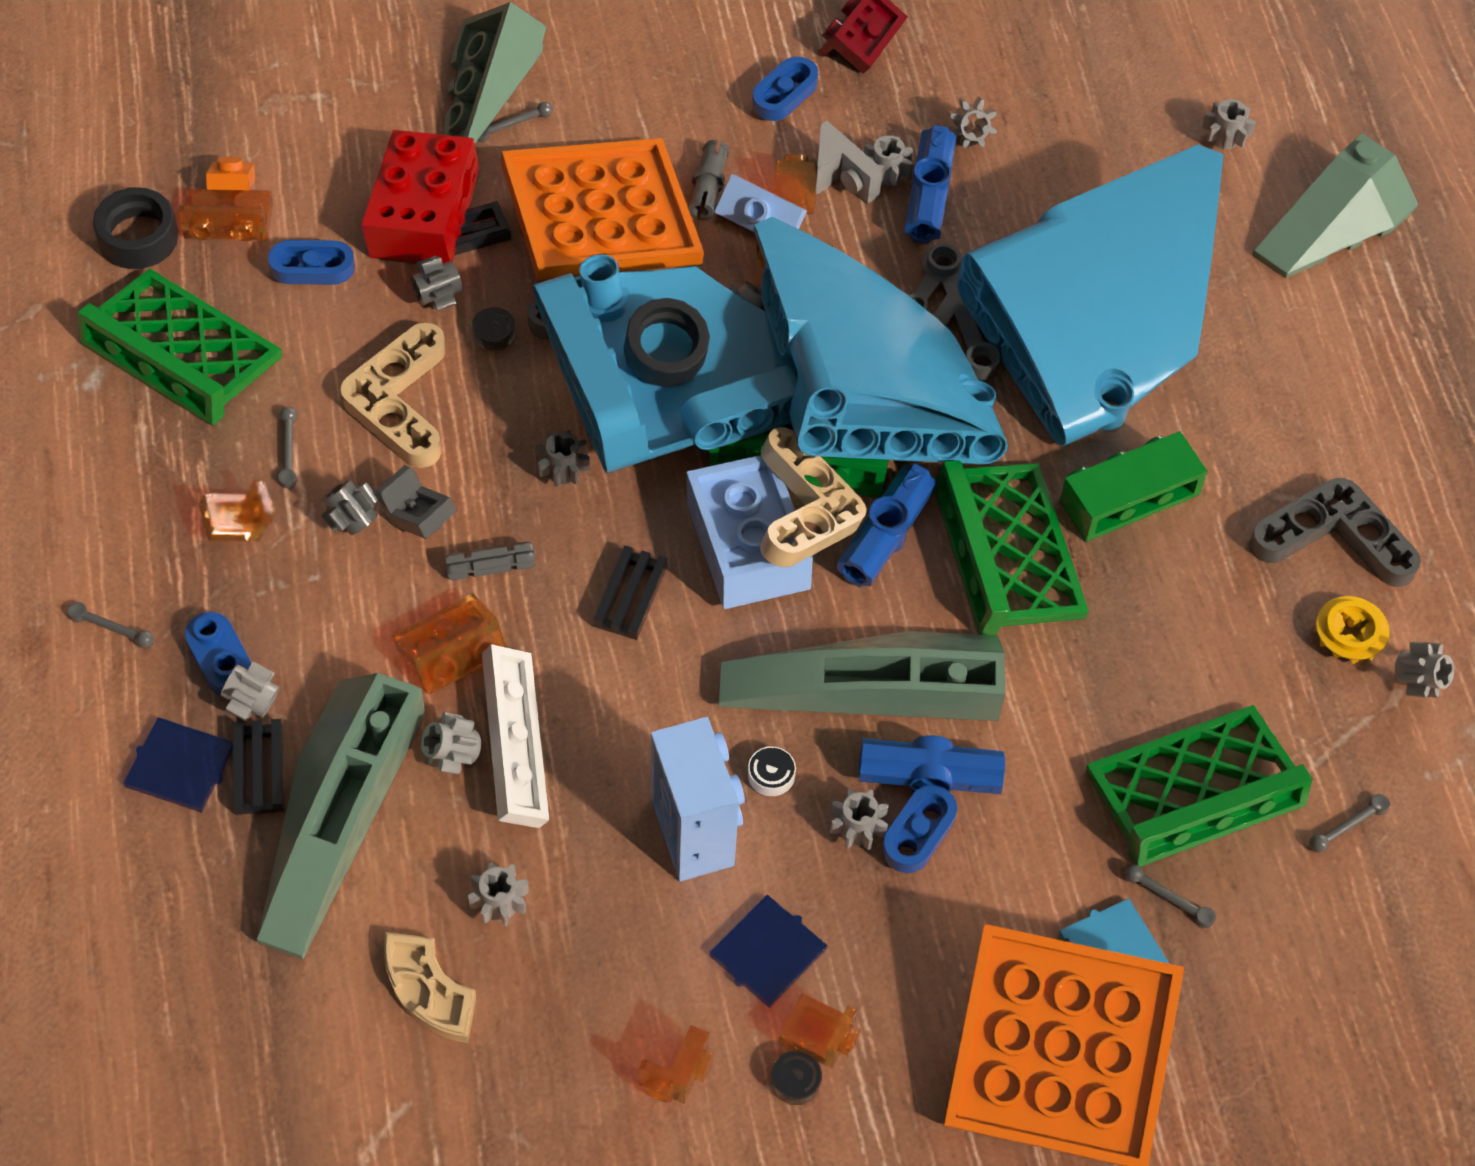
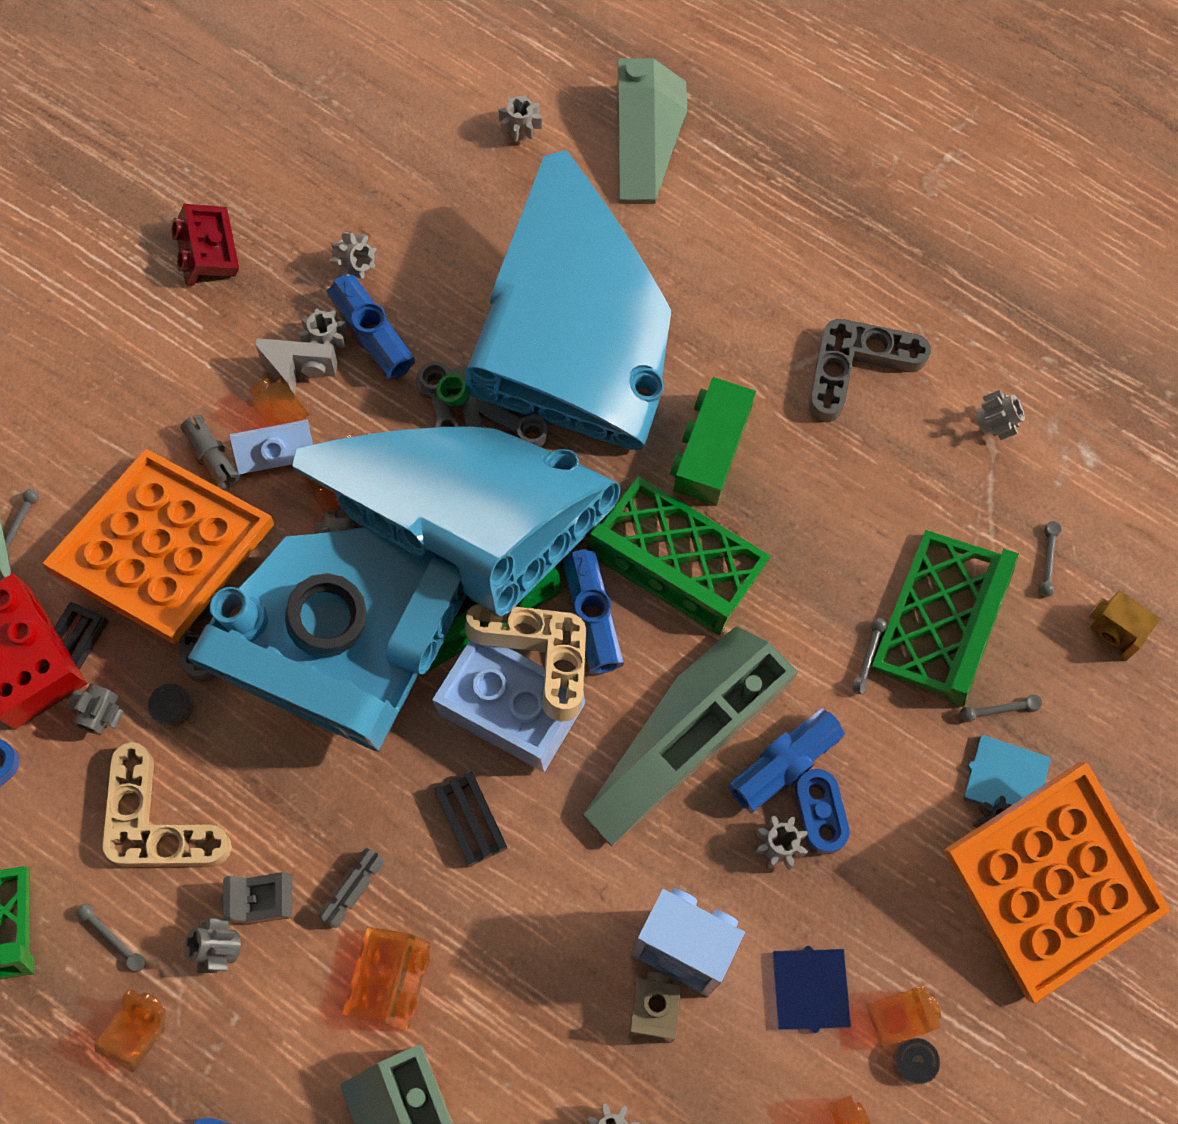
camera: 45 degrees left, 10 degrees up
(451, 743) = (469, 1055): light grey gear -> none
(515, 737) = (505, 1005): white plate -> none
(562, 458) = (320, 753): dark grey gear -> none
(626, 856) = (650, 1024): none -> dark tan brick
(771, 771) = (690, 860): black tile -> none
(779, 94) = (194, 337): blue plate -> none
(949, 272) = (453, 384): none -> green hinge
(1061, 770) = (860, 684): none -> dark grey hinge
(1354, 613) = (945, 416): yellow gear -> none
(1359, 922) = (1123, 623): none -> pearl gold brick

